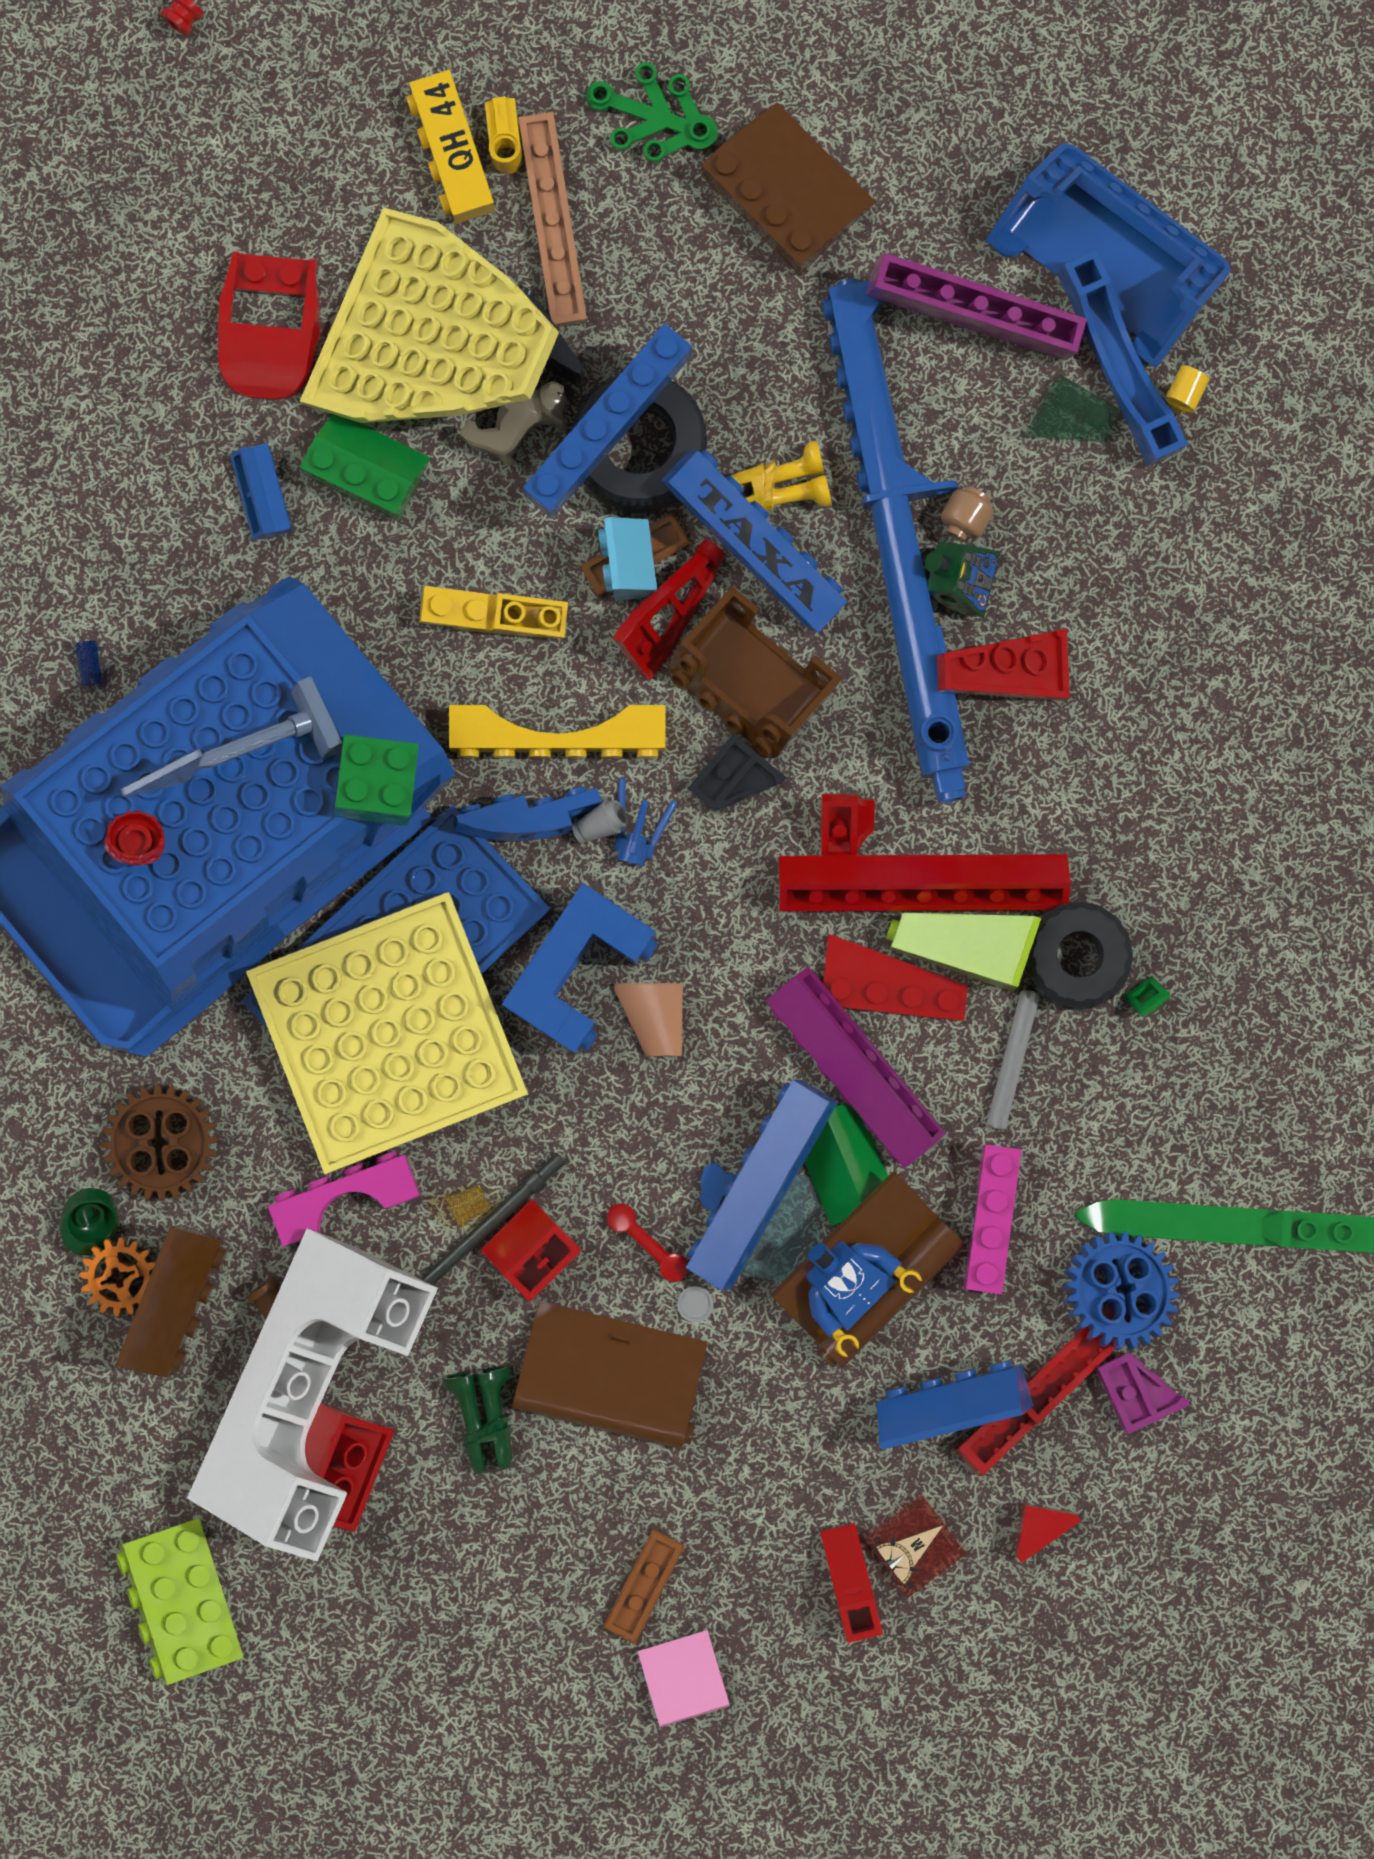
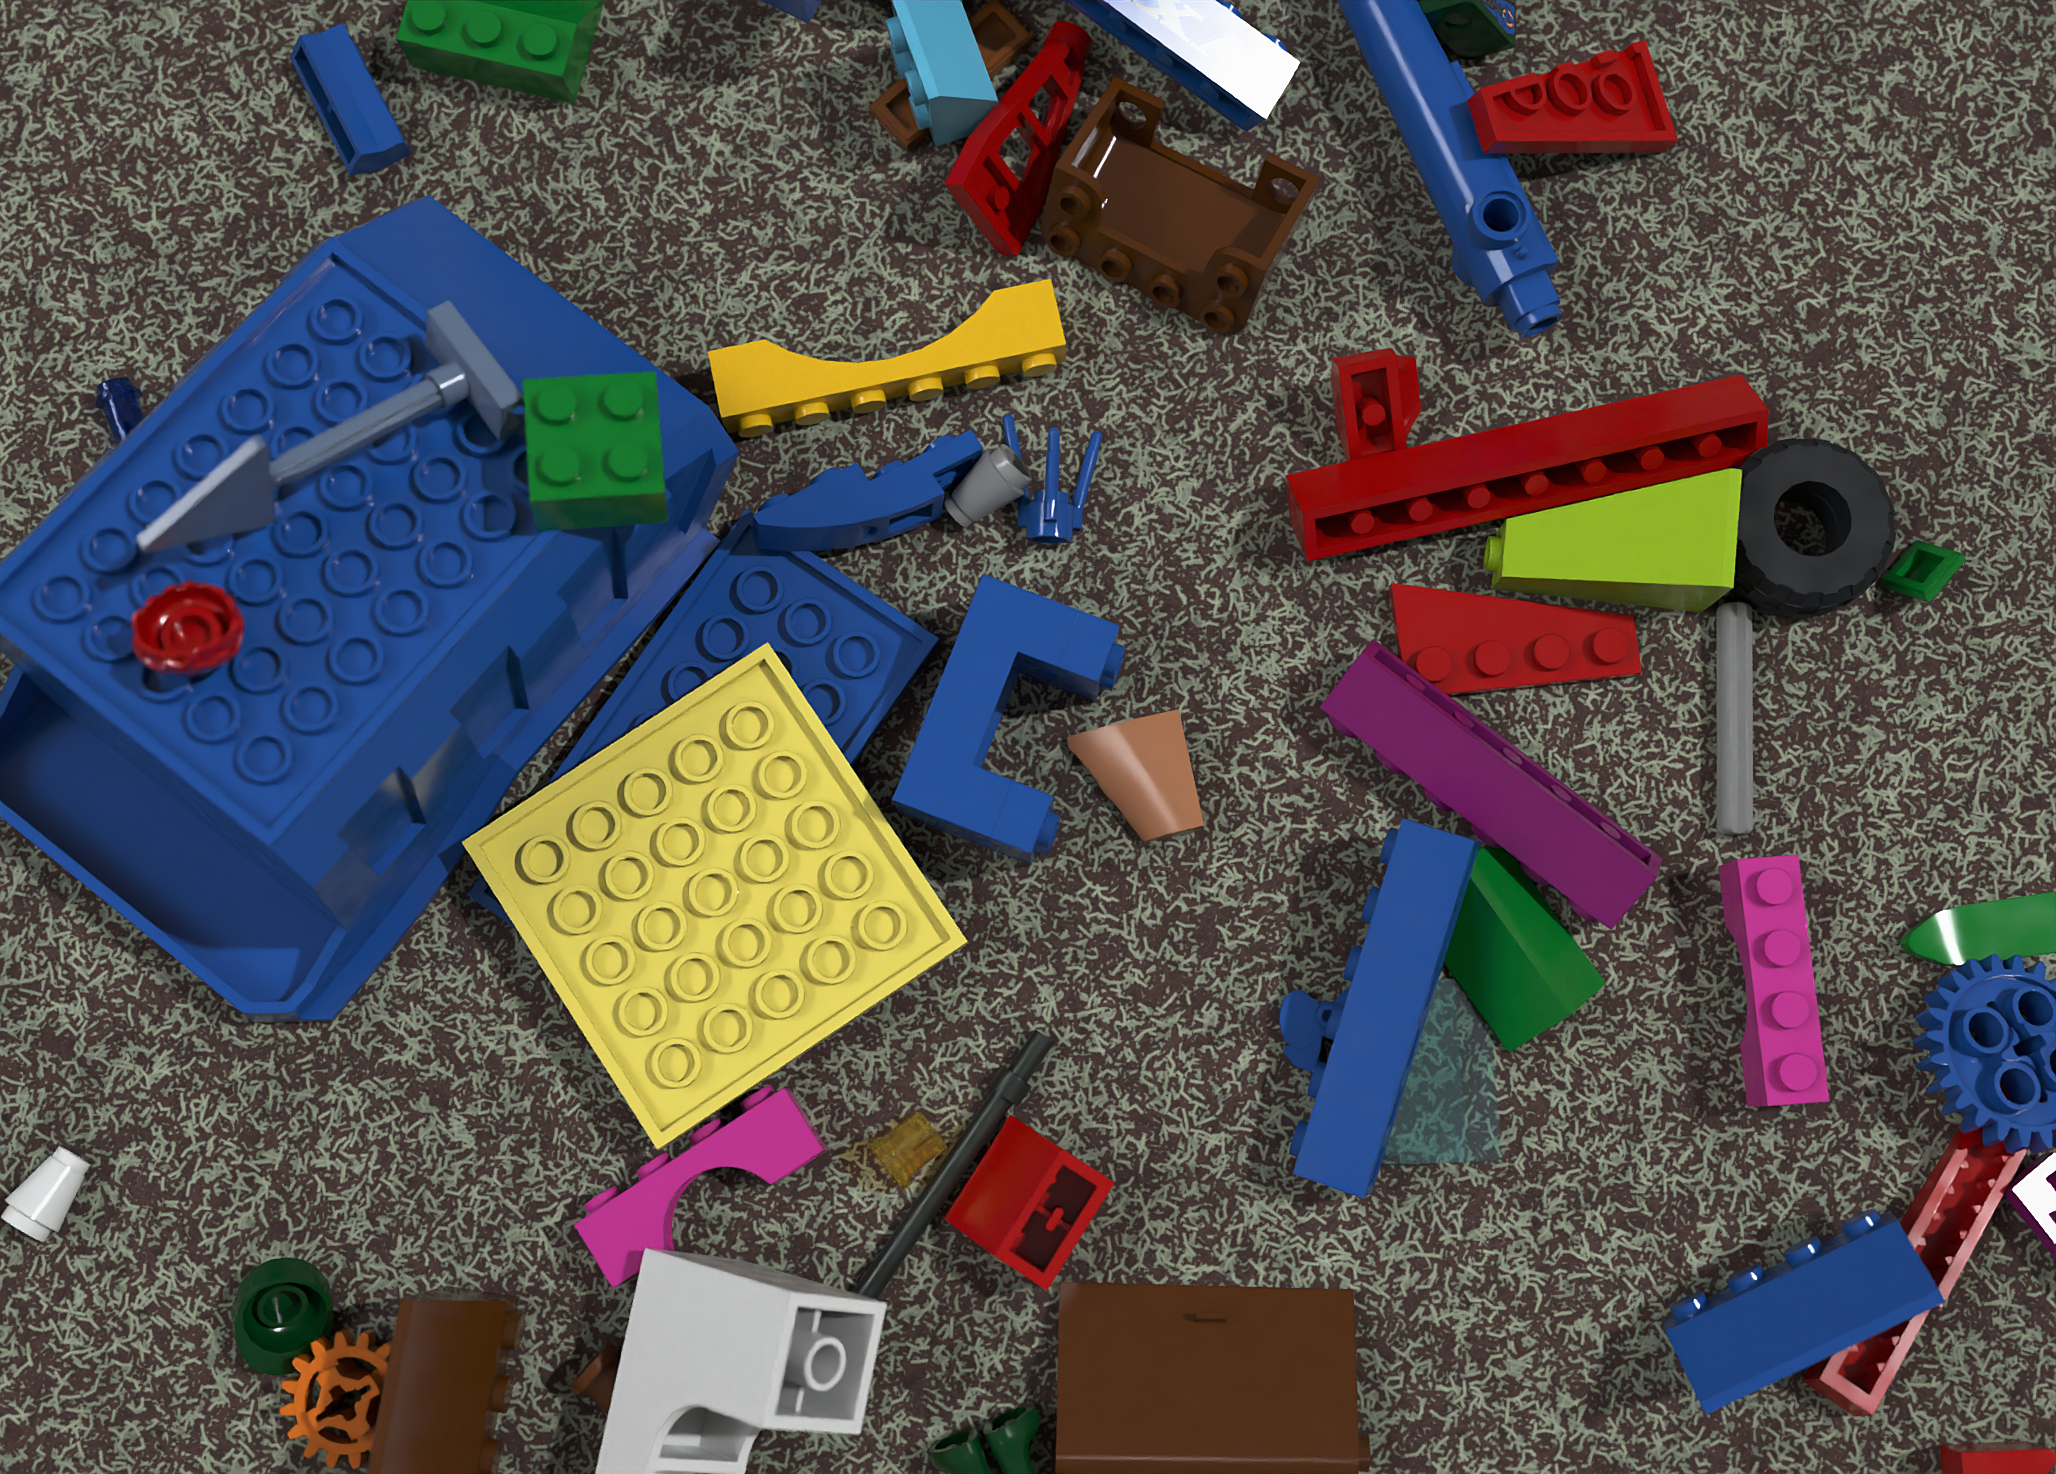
camera: 10 degrees left, 5 degrees down
(127, 1144) = (324, 1171): reddish brown gear -> none
(493, 613) = (749, 206): yellow slope -> none
(622, 1219) = (1167, 1116): red bar -> none
(695, 1304) = (1318, 1230): light grey piece -> none
(734, 776) = (1184, 371): black wing -> none
(849, 1283) = (1574, 1140): blue torso -> none
(906, 1229) = (1593, 1112): reddish brown door -> none

